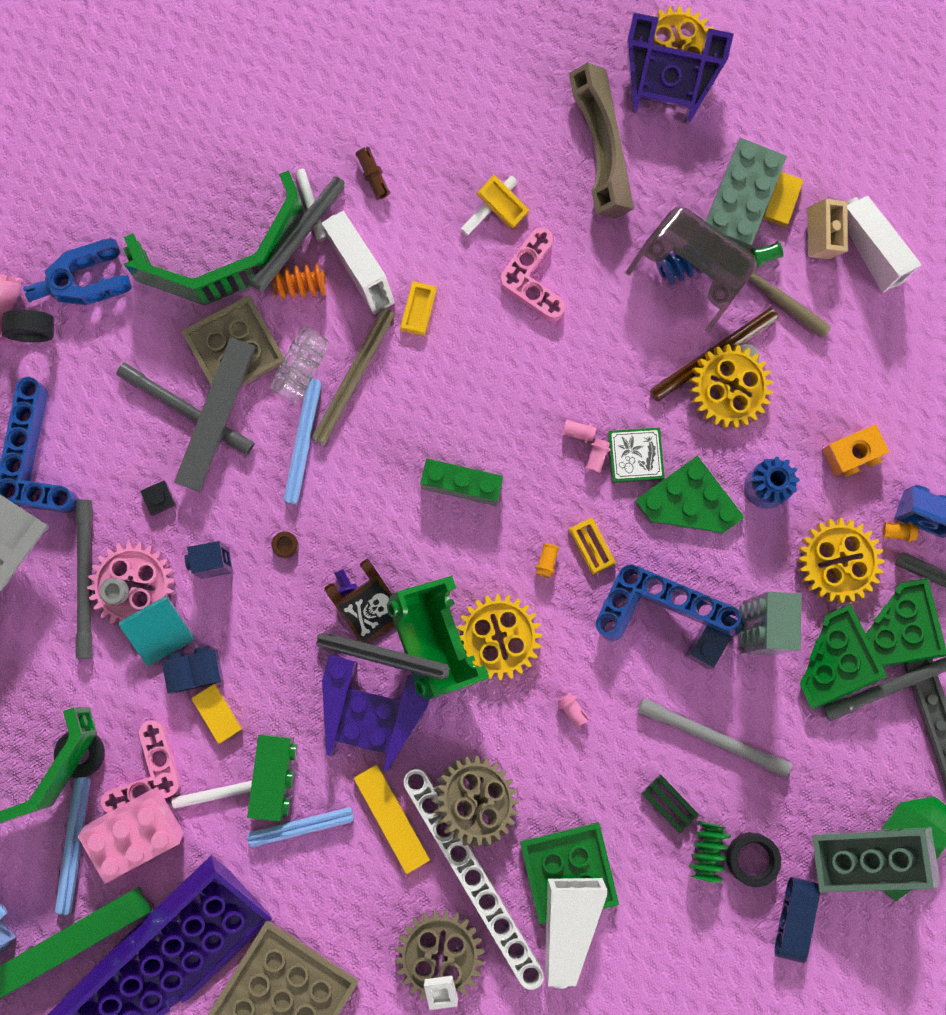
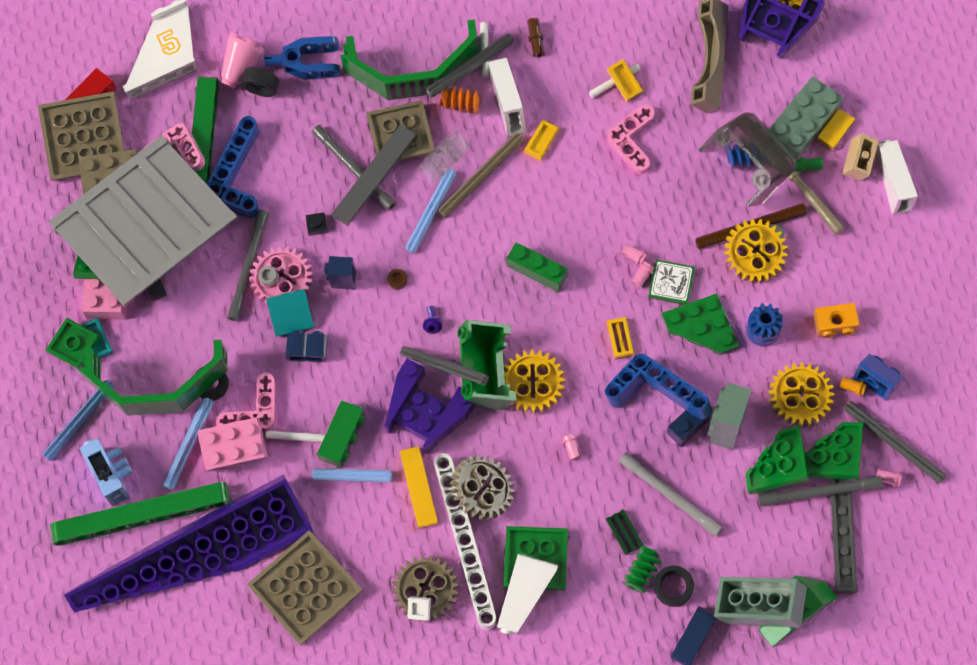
camera: 25 degrees right, 10 degrees down
(217, 713) = (315, 382): yellow tile -> none
(365, 606) = (442, 334): flag -> none
(547, 560) = (583, 339): light orange pin -> none

